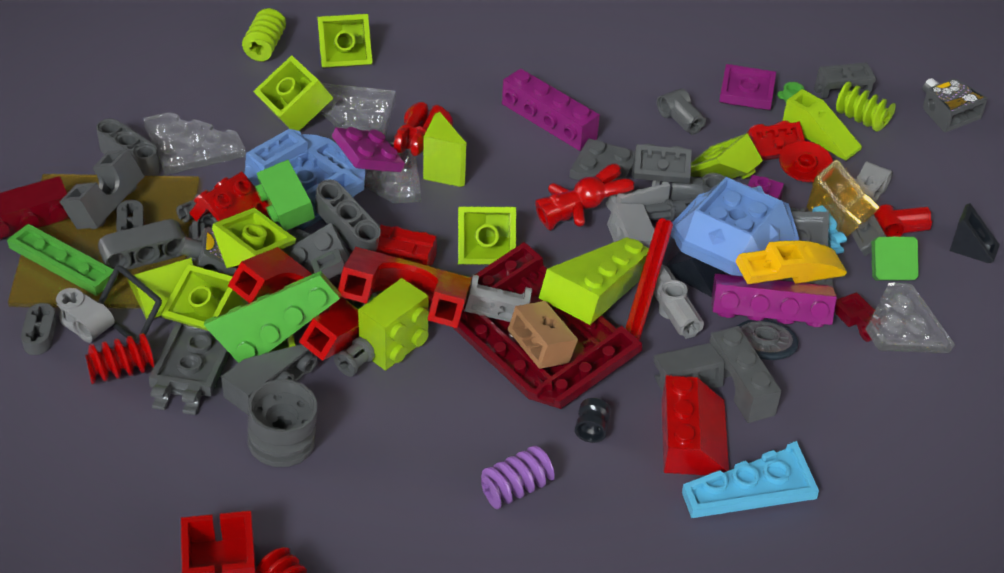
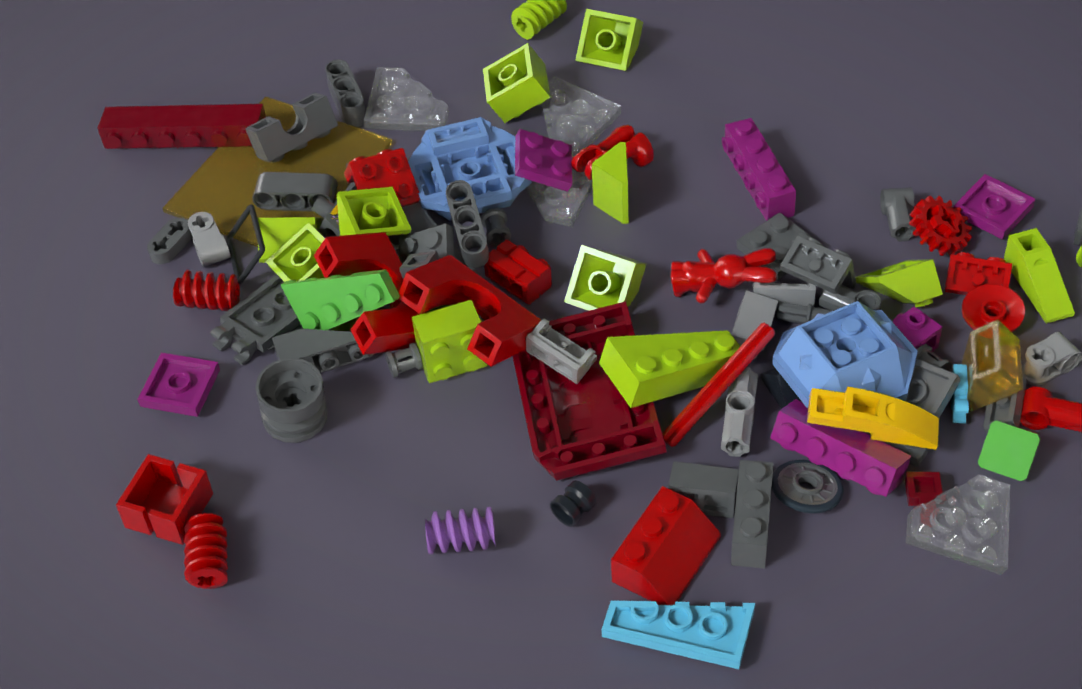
camera: 35 degrees right, 5 degrees up
(61, 259) = (221, 181): bright green plate -> none
(124, 209) = (297, 163): dark grey beam -> none
(148, 452) = (179, 384): none -> magenta plate
(285, 195) = (424, 184): bright green brick -> none
(542, 334) = (577, 401): medium nougat brick -> none
(722, 111) = (940, 225): none -> red gear
(789, 90) = (1044, 225): bright green plate -> none

